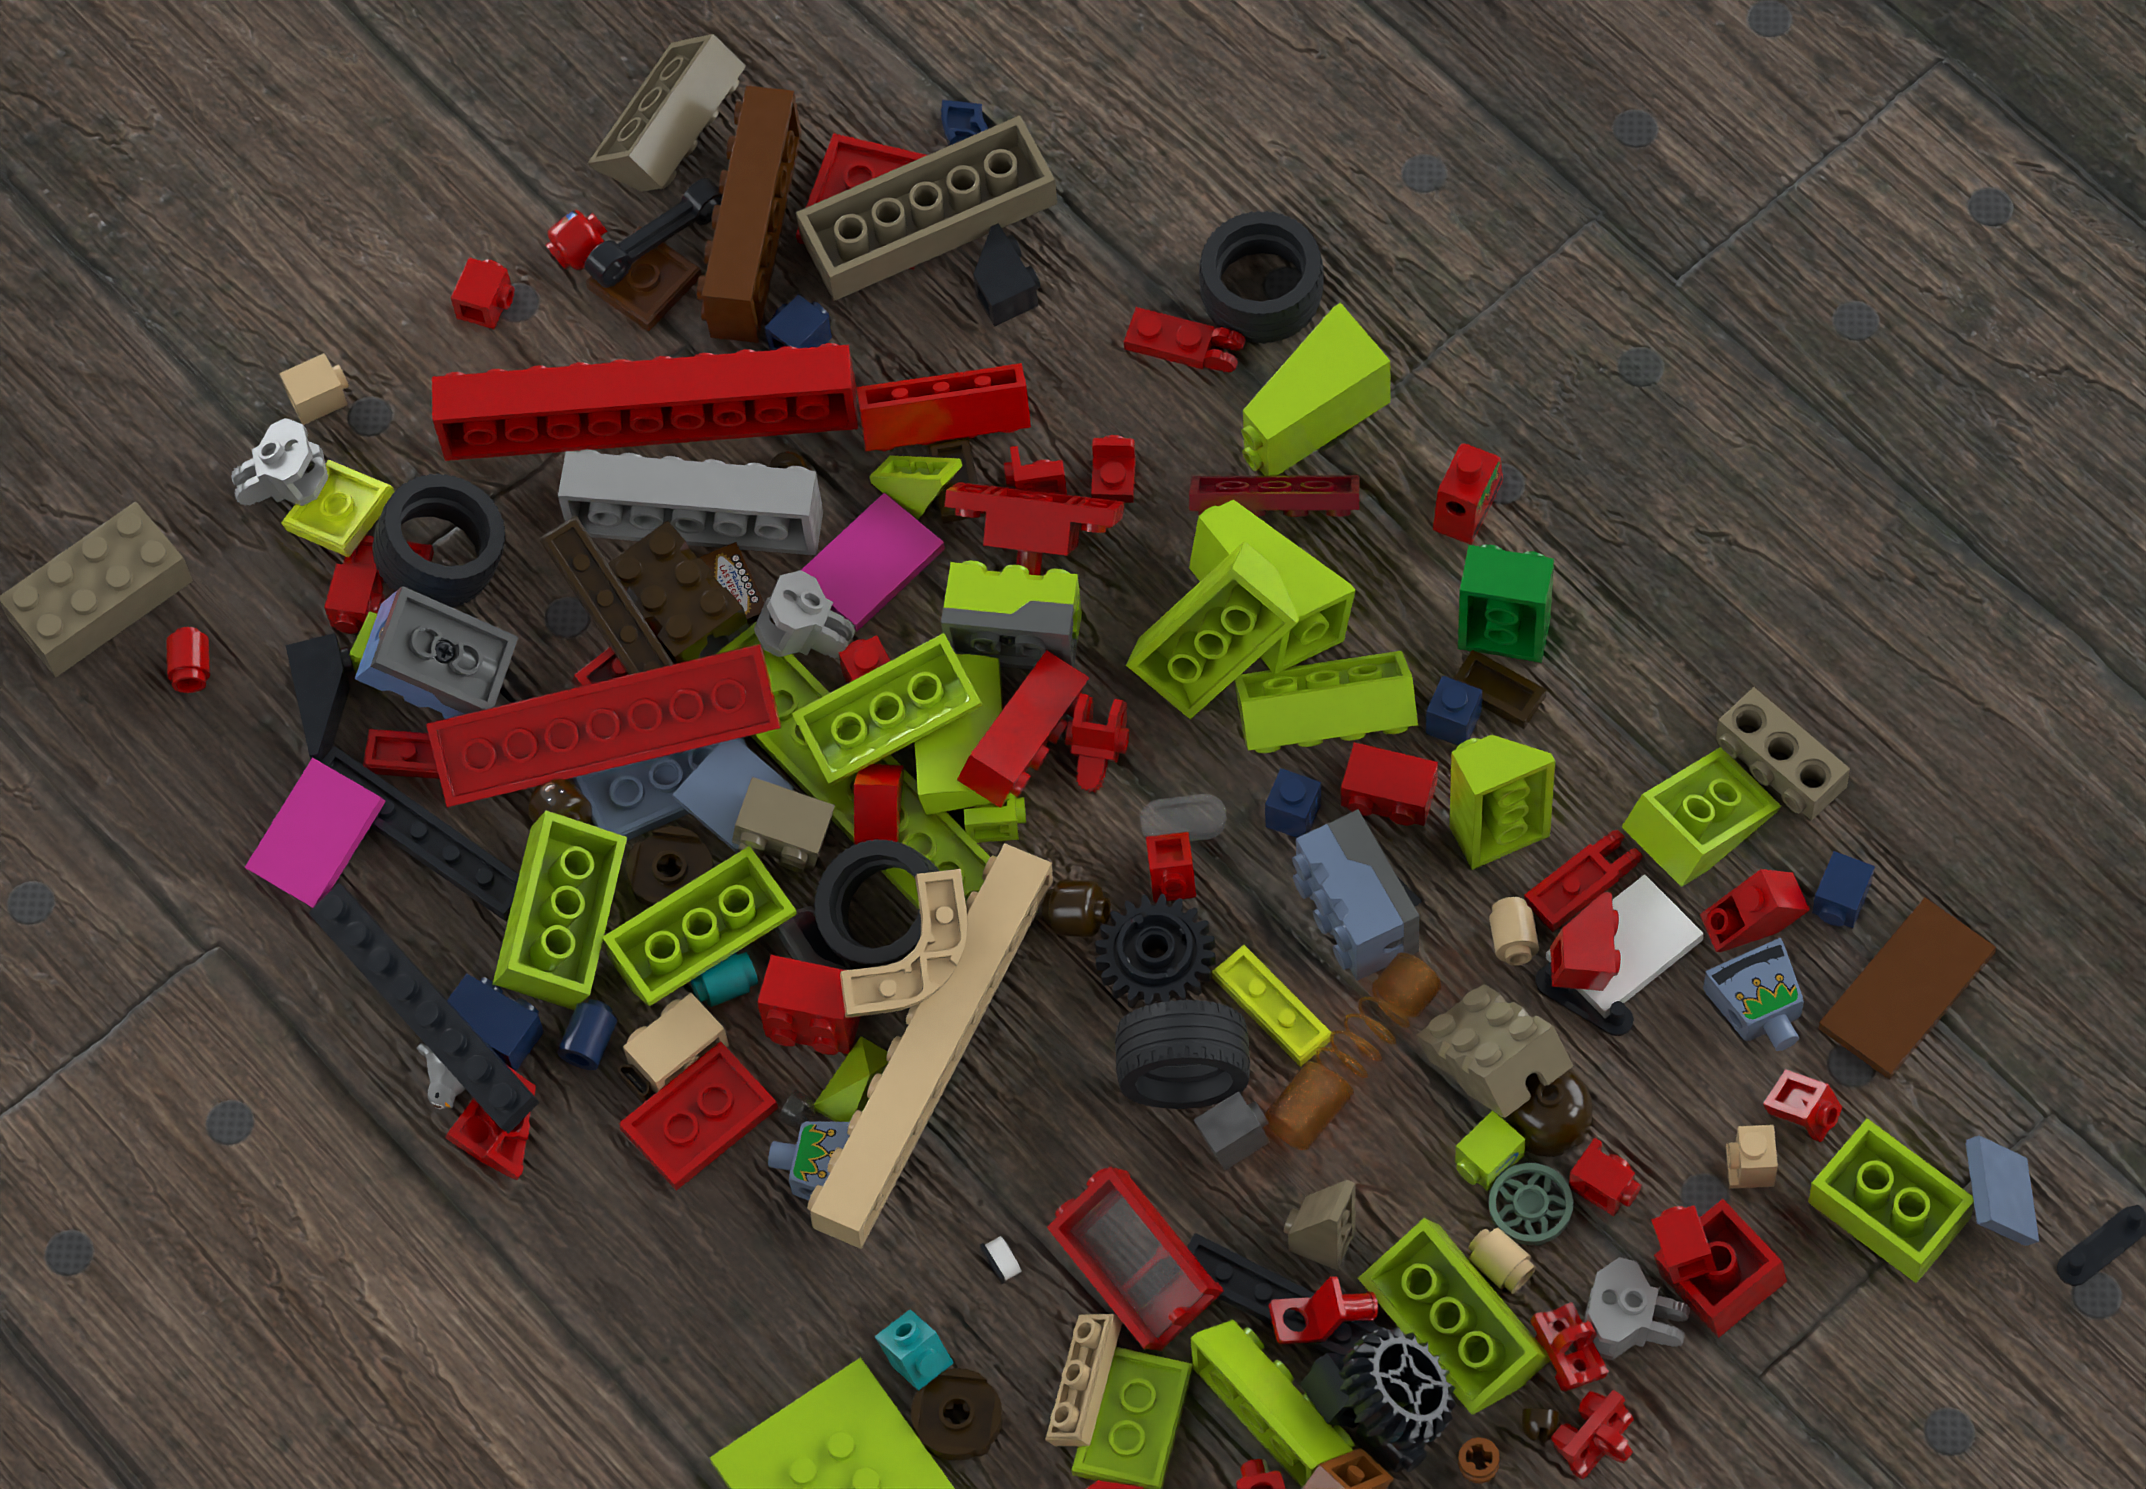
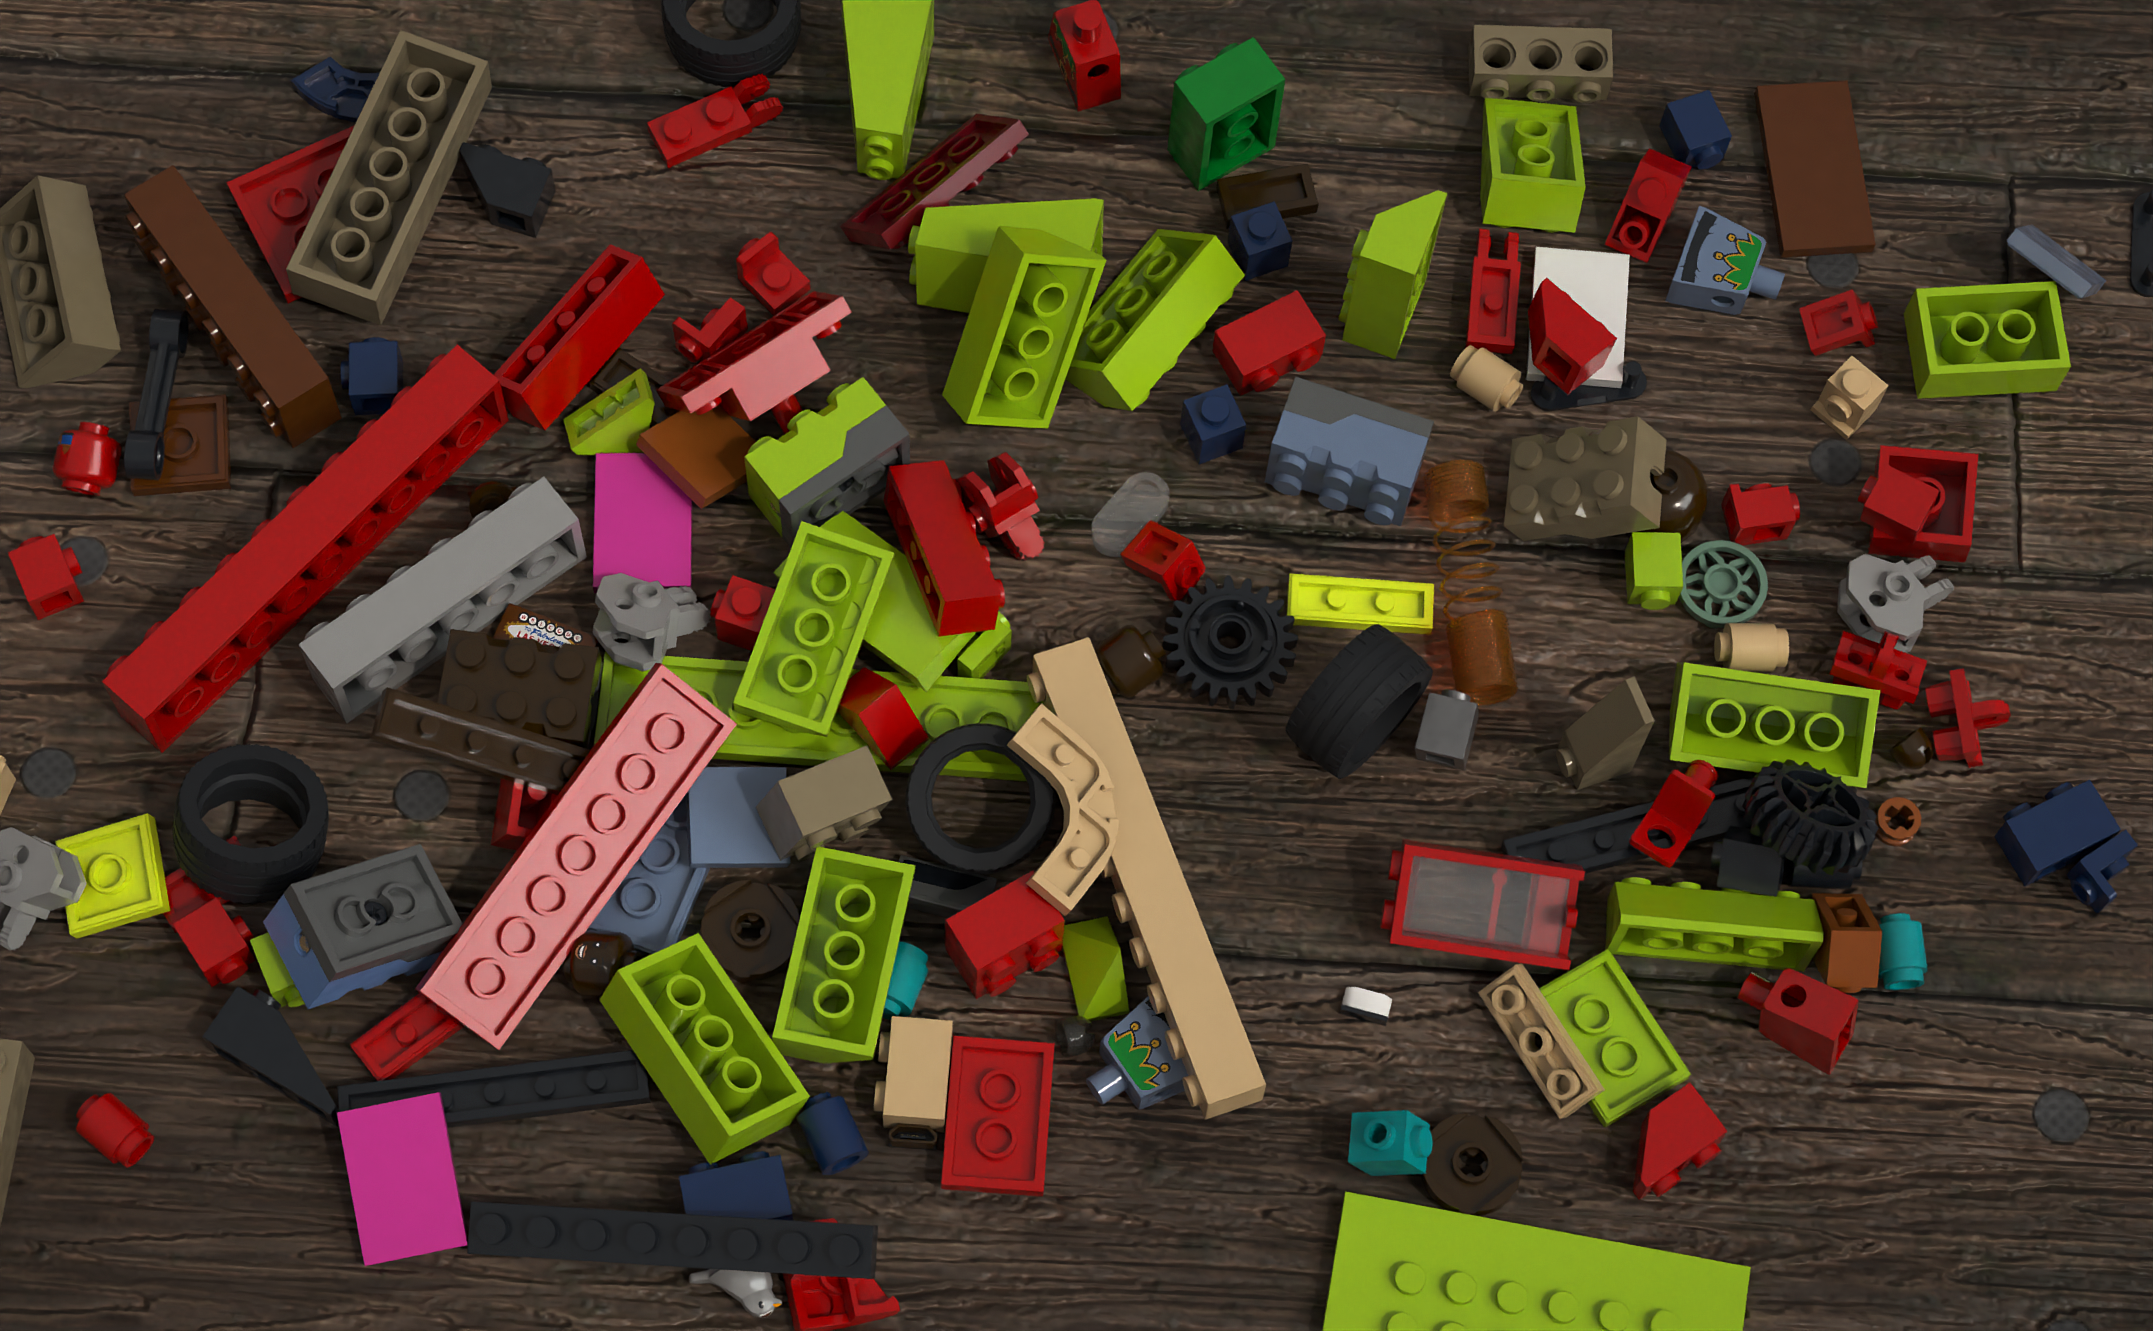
camera: 55 degrees left, 5 degrees up
(940, 538) = (699, 453): none -> dark orange tile

